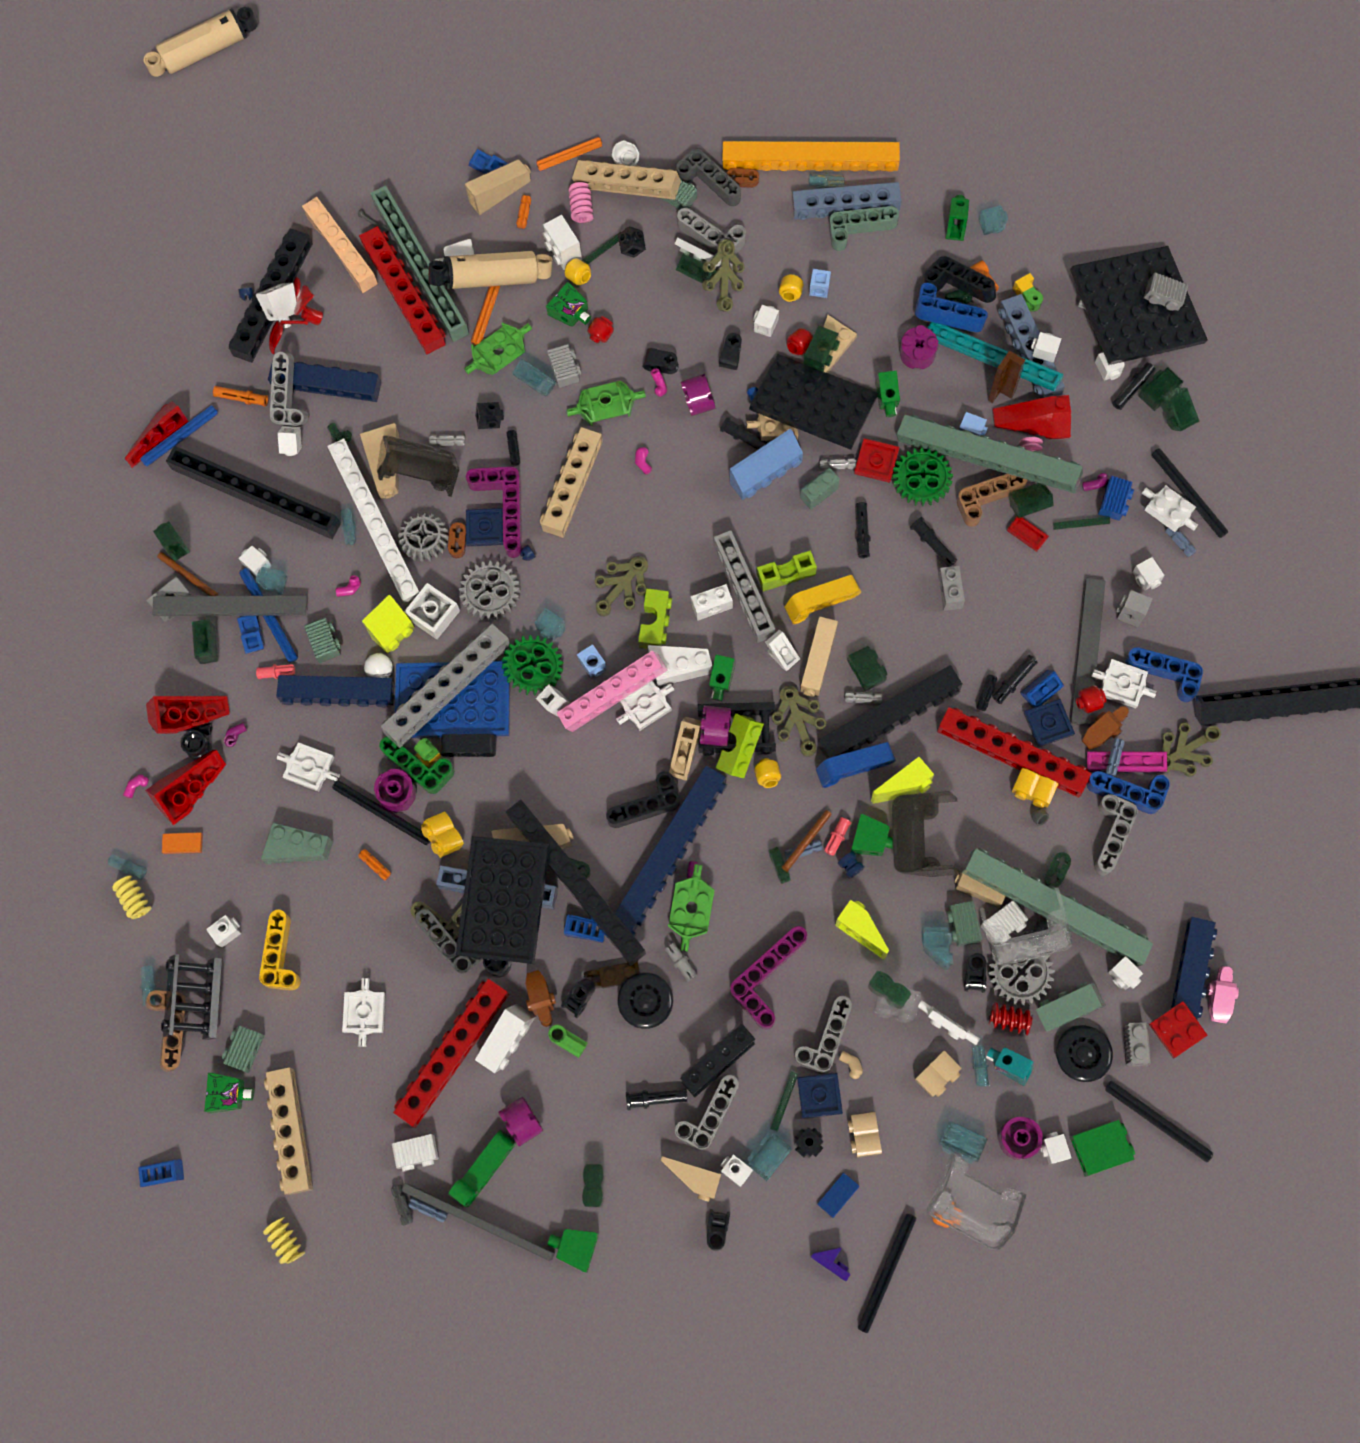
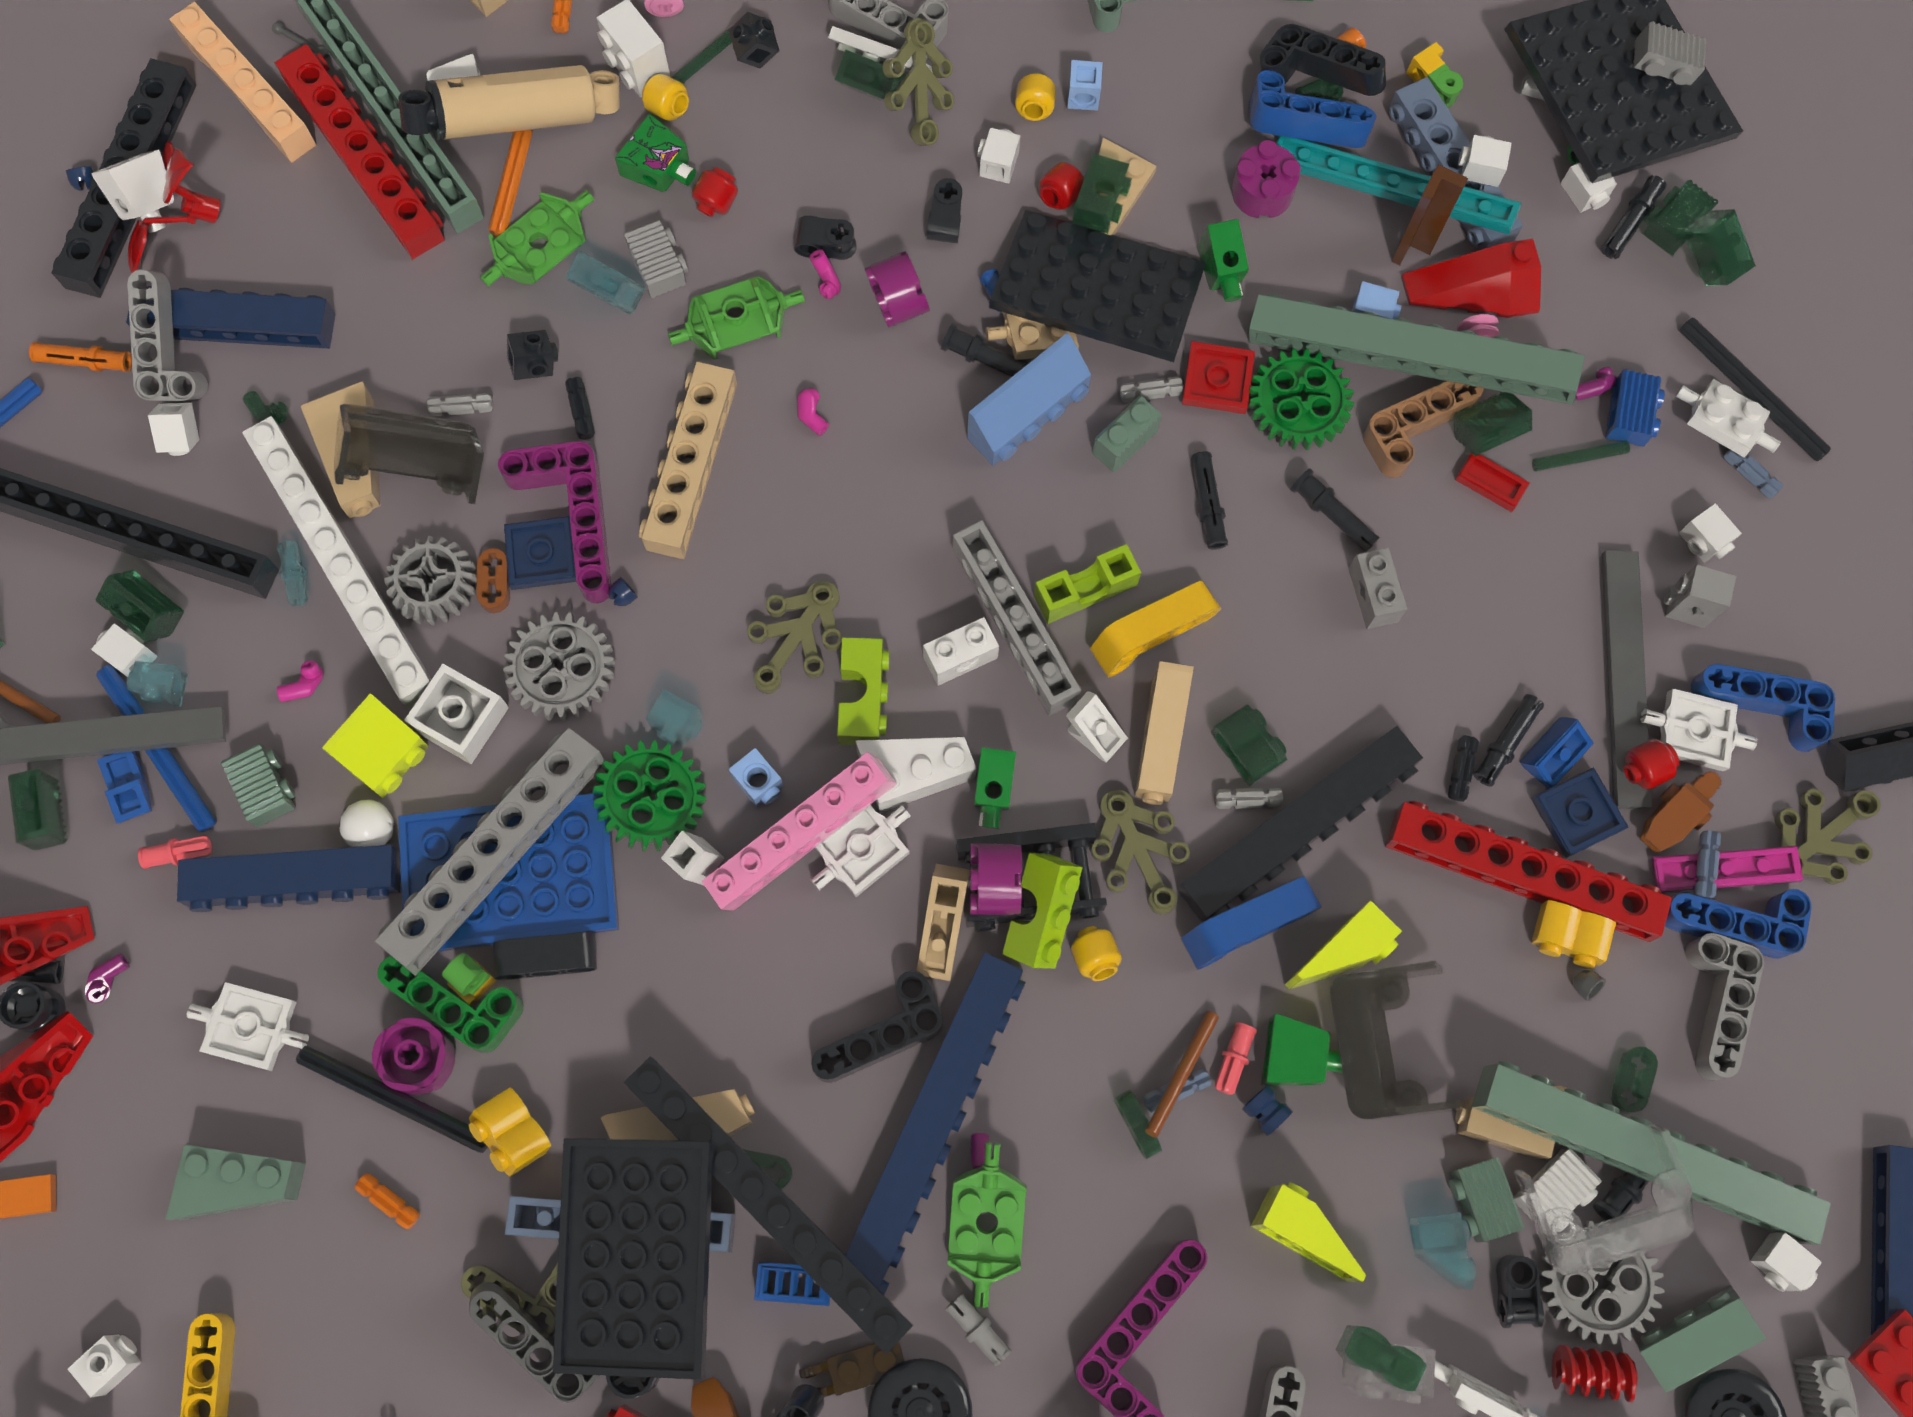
camera: 15 degrees left, 0 degrees up
(265, 537) = (139, 605): none -> clear green brick

